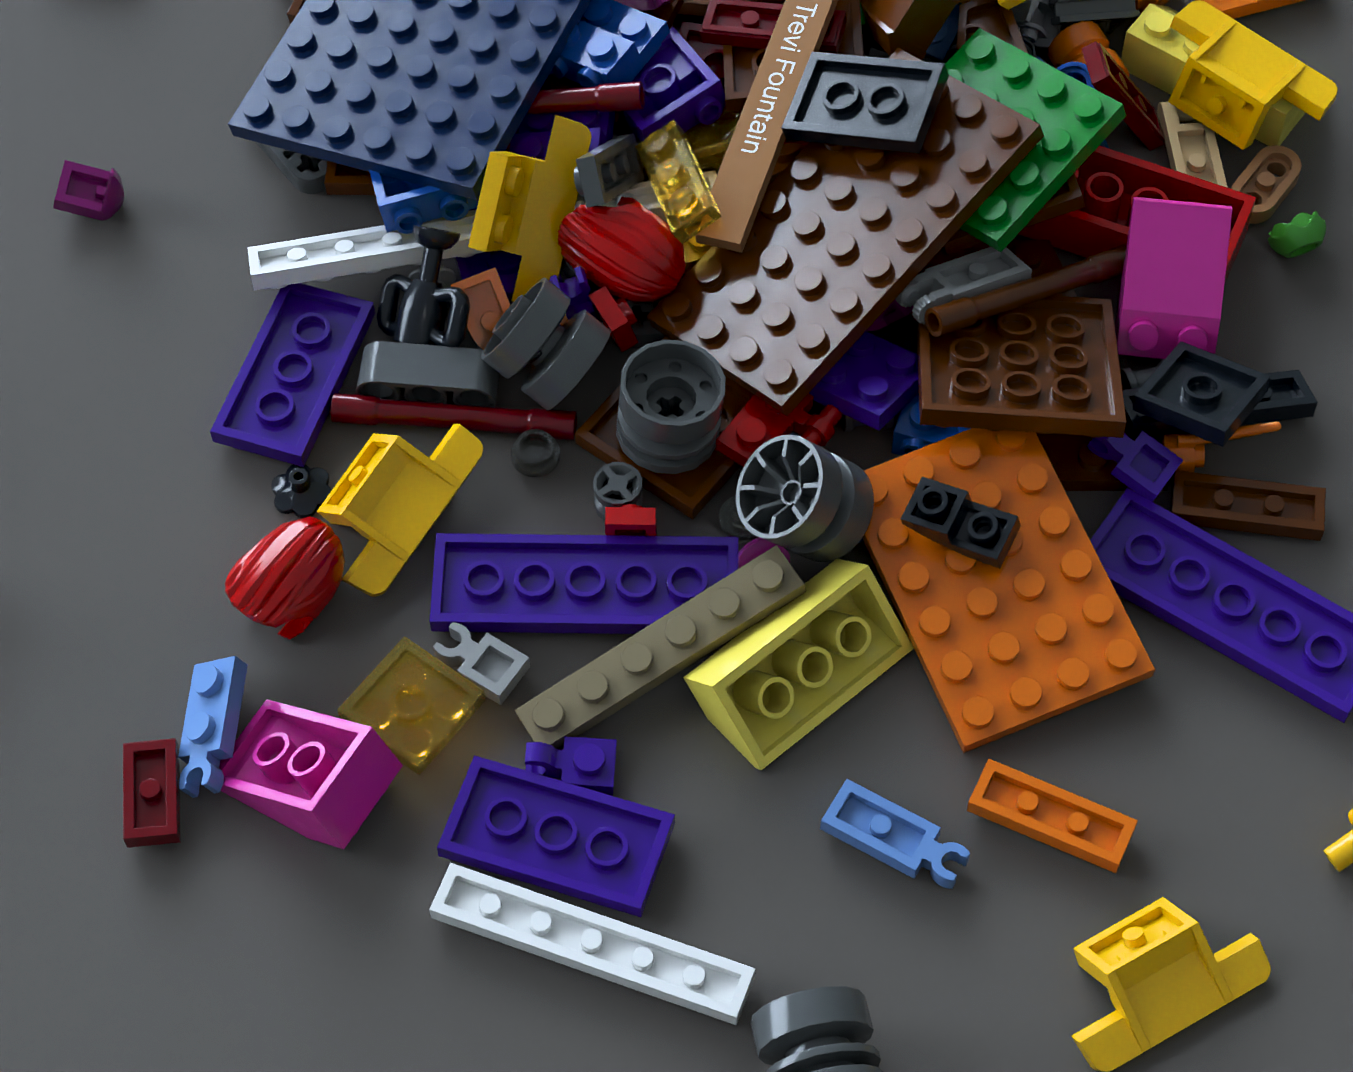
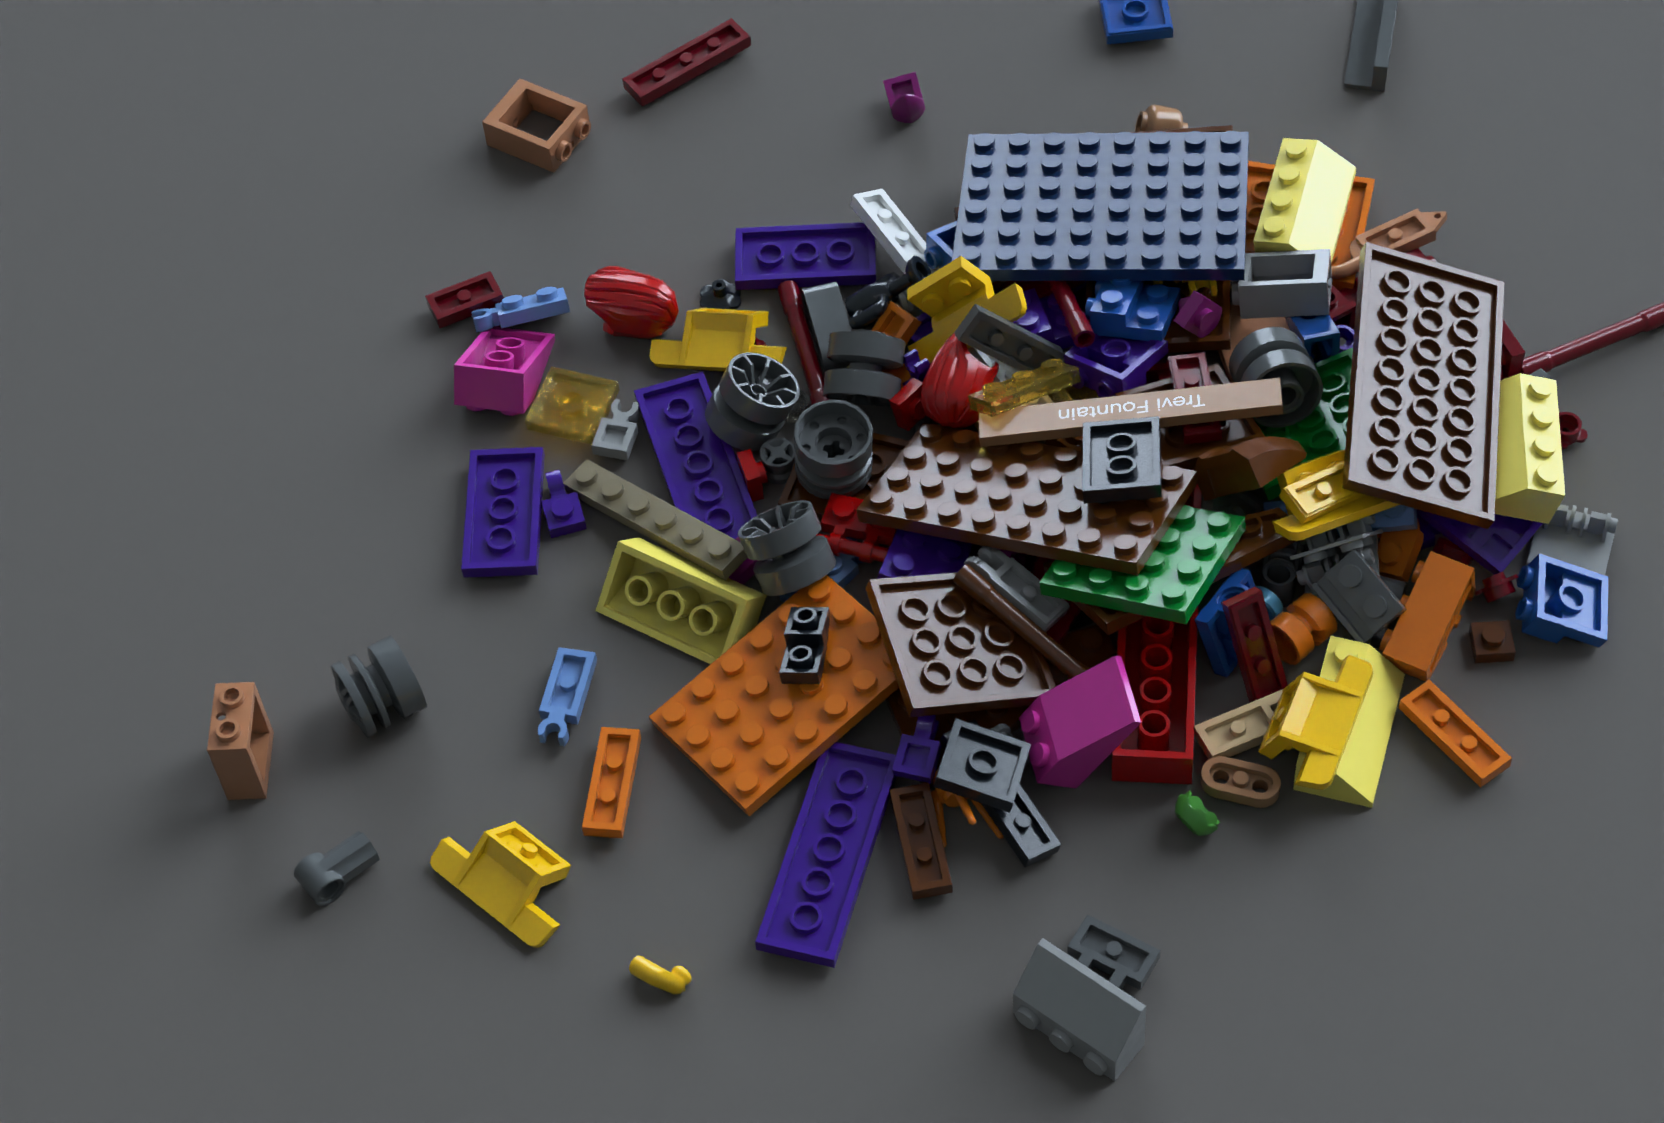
camera: 75 degrees right, 5 degrees down
(537, 480) = (751, 401): none -> dark grey wheel
(593, 943) = (432, 556): white plate -> none

